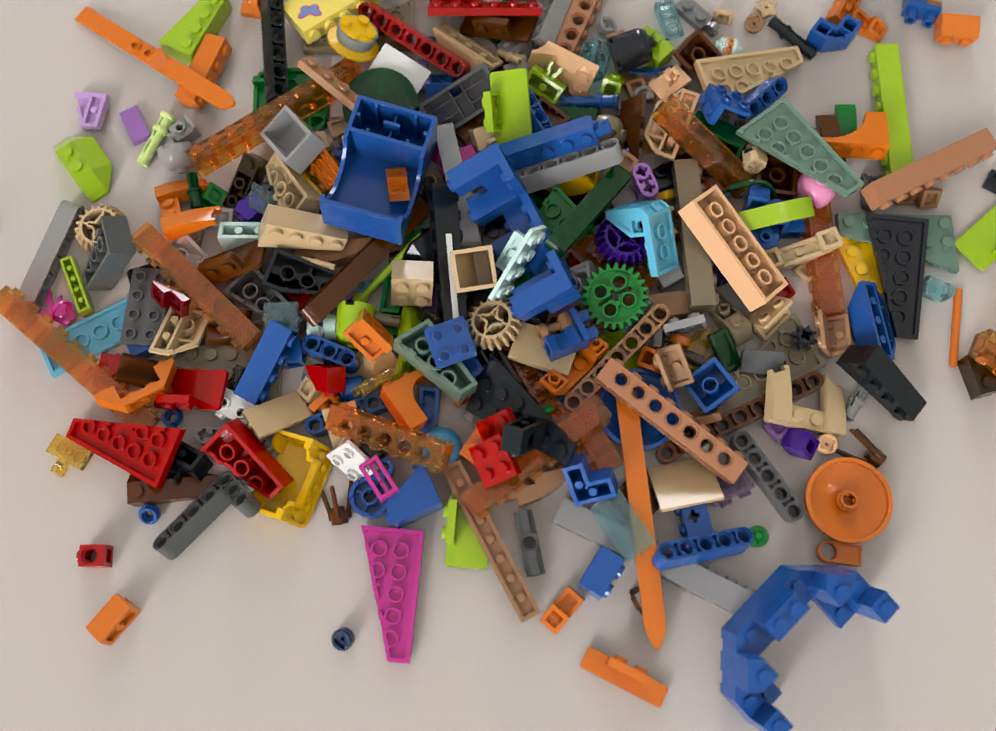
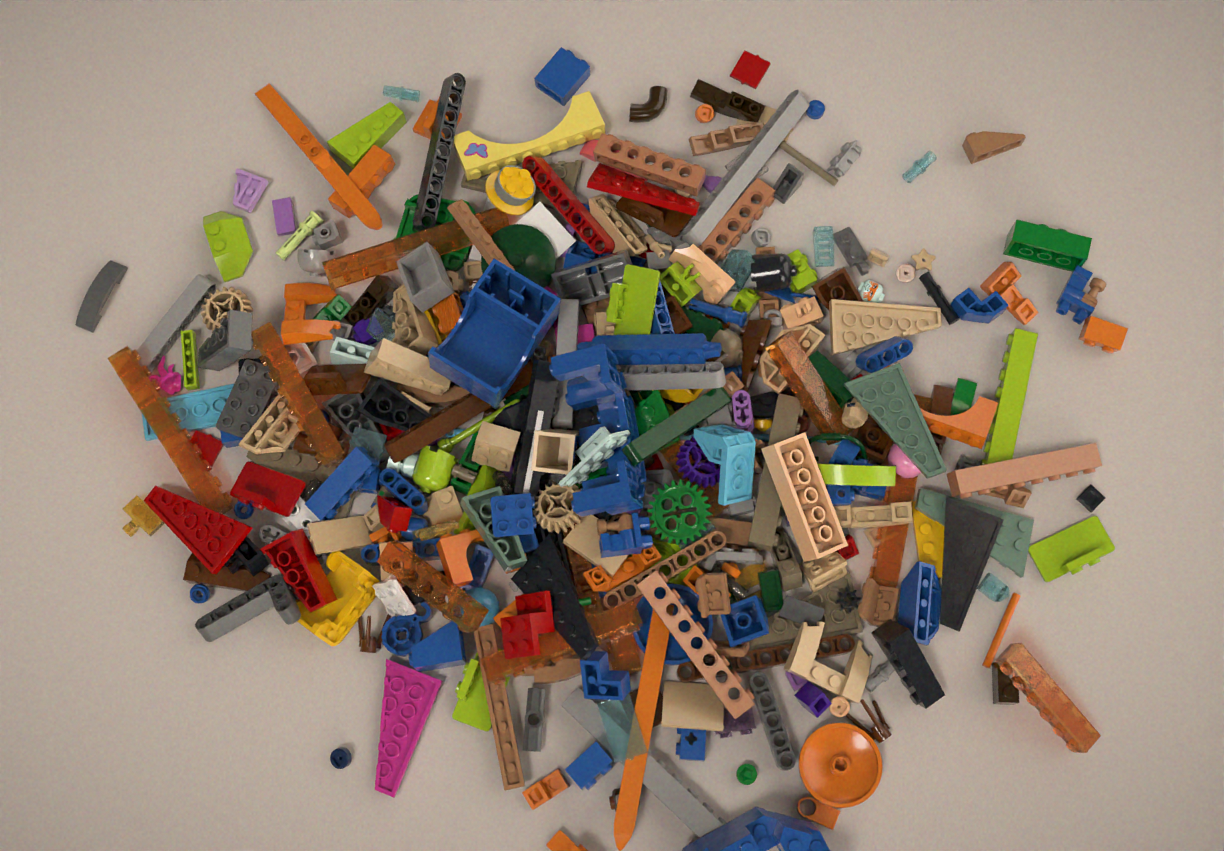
camera: 15 degrees right, 0 degrees up
(103, 559) = (149, 621): red brick -> none
(109, 398) = (192, 478): orange slope -> none
(112, 619) = (142, 680): orange hinge -> none
(136, 370) = (225, 459): reddish brown panel -> none
(169, 296) = (271, 397): dark red slope -> none
(194, 191) = (321, 300): dark green axle -> none
(369, 336) = (442, 486): orange bracket -> none
(388, 493) = (417, 638): dark pink tile -> none
(397, 184) = (508, 349): orange slope -> none
(523, 435) = (550, 621): black brick -> none
(716, 546) = (681, 775): blue beam -> none
(717, 99) = (841, 348): blue bracket -> none

